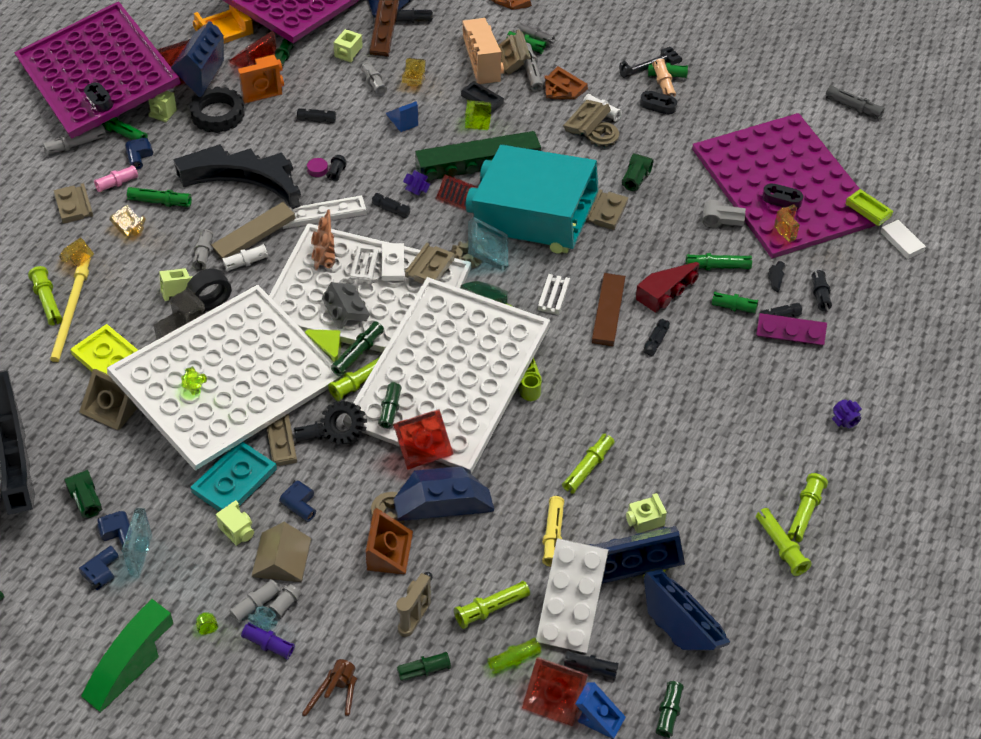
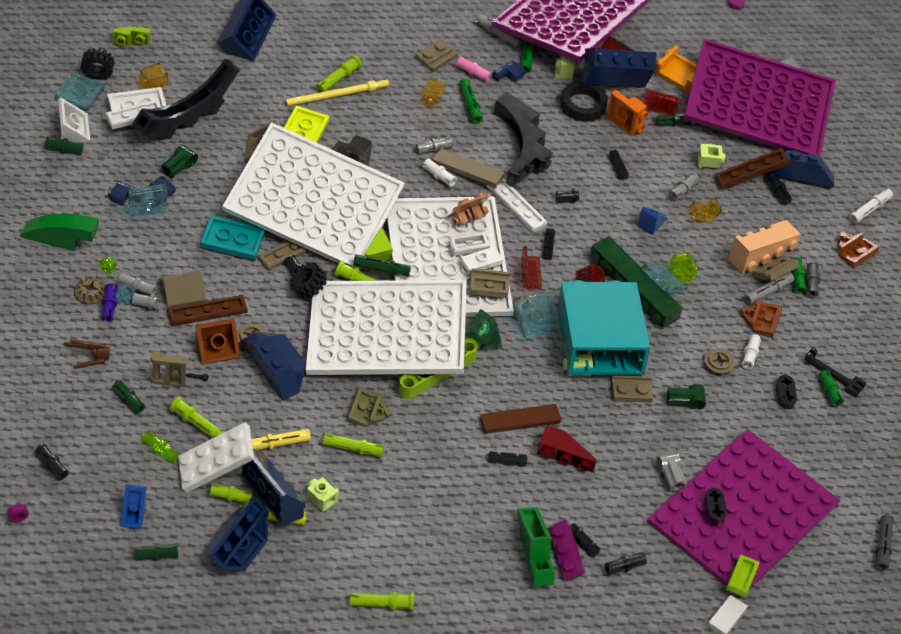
camera: 60 degrees right, 0 degrees up
(77, 252) = (385, 74): clear yellow bracket -> none
(100, 95) = (534, 21): black beam -> none
(173, 282) = (389, 140): yellowish green brick -> none
(193, 380) = (286, 173): clear neon green plant -> none
(207, 278) = (395, 154): black tyre -> none
(235, 524) = (194, 250): yellowish green brick -> none
(235, 667) = (94, 295): none -> dark tan gear
(296, 500) = (235, 279): dark blue piece -> none
(317, 167) = (562, 183): magenta tile -> none
(328, 542) = (207, 310): none -> reddish brown tile
(344, 304) = (421, 243): dark grey bracket -> none
(390, 405) = (335, 300): dark green axle -> none
(416, 182) = (578, 250): dark purple gear -> none
(419, 232) = (530, 271): none -> clear red panel
(423, 439) = (312, 329): clear red slope -> none
(477, 92) = (709, 265): black plate -> none
(487, 131) = (664, 278): none -> clear light blue plate
(540, 434) = (367, 408): none -> olive slope
(554, 691) = (139, 472): clear red slope -> none
(557, 281) = (515, 374): white tile -> none
(587, 117) = (727, 342): dark tan plate -> none
(591, 665) = (173, 494): black pin -> none
(612, 604) = (230, 493): none -> lime pin
(663, 77) = (814, 385): light nougat pin -> none
(720, 261) = (612, 474): green pin -> none
(735, 302) = (575, 503): green pin -> none
(776, 275) = (626, 528): black bar -> none
(781, 348) = (536, 546): none -> green slope
(786, 224) = (681, 510): clear yellow bracket -> none
(788, 549) = (334, 595): lime pin -> none
(846, 413) = (492, 607): dark purple gear -> none

